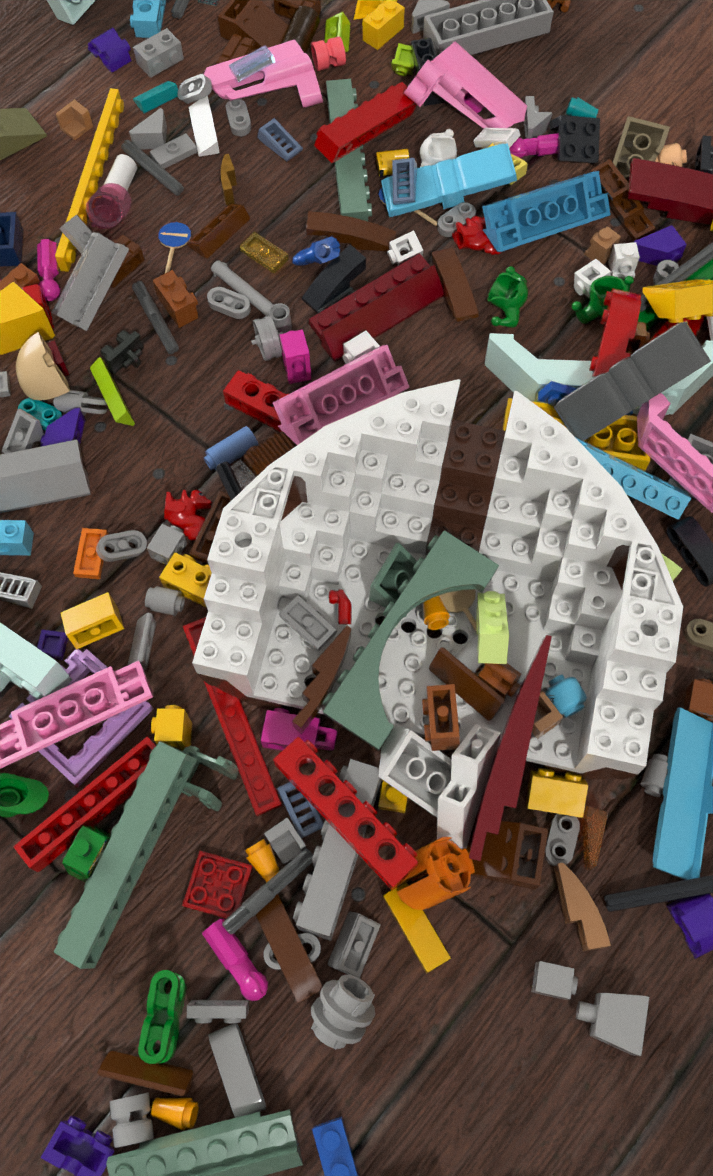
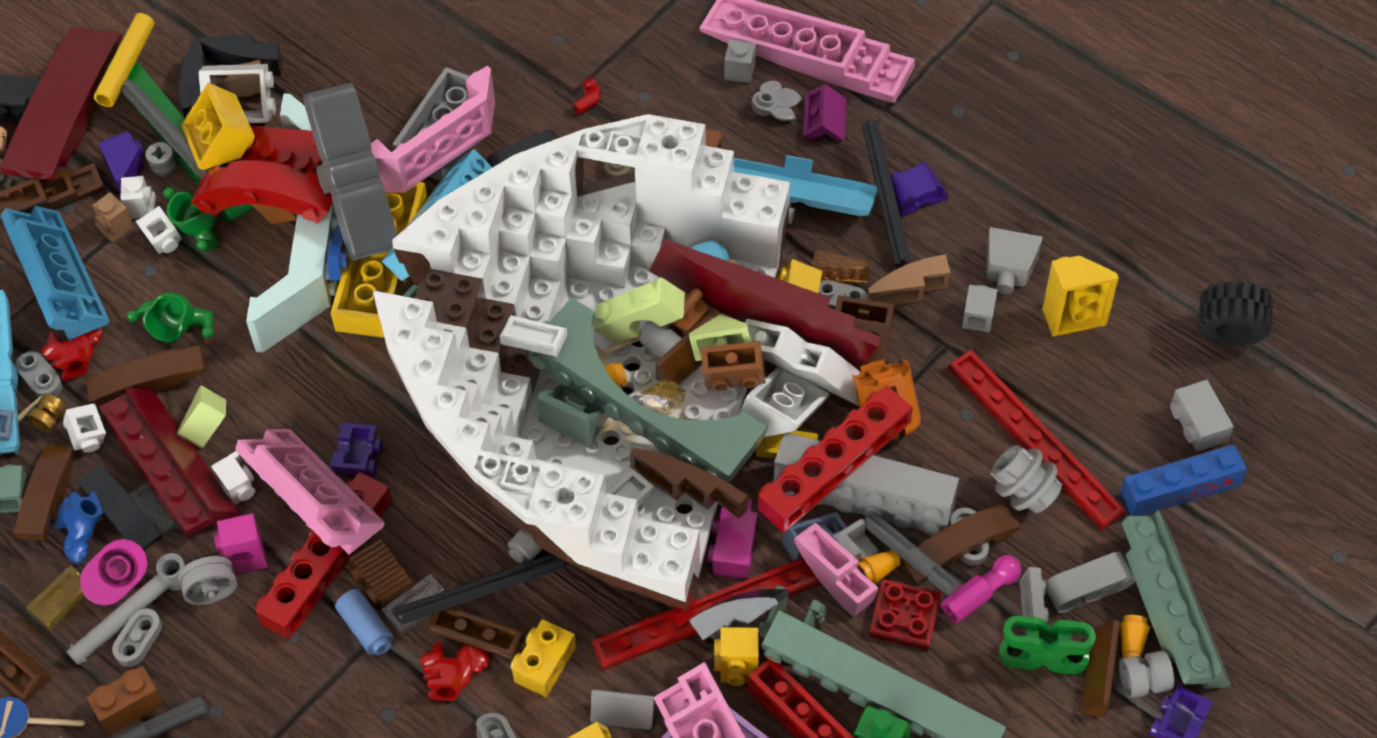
camera: 90 degrees left, 10 degrees down
(164, 600) = (570, 685): light grey brick -> none
(166, 543) = (496, 687): light grey brick -> none
(207, 727) = (736, 610): none -> slope
(258, 819) = (836, 569): none -> bright pink slope
(276, 277) = (113, 572): none -> dark pink piece
(344, 605) = (602, 462): red arm -> none
(354, 944) = (971, 486): light grey slope -> none
(402, 1032) = (1032, 433): none -> red tile
(408, 654) = (663, 395): none -> clear yellow plate
(417, 931) = (939, 427): yellow slope -> none
(418, 325) = (202, 417): none -> yellowish green slope
(421, 226) = (47, 413): none -> pearl gold wheel
(449, 531) = (533, 336): none -> white tile
(473, 704) = (718, 332): none -> yellowish green slope
(560, 1086) = (1078, 295): none -> yellow slope

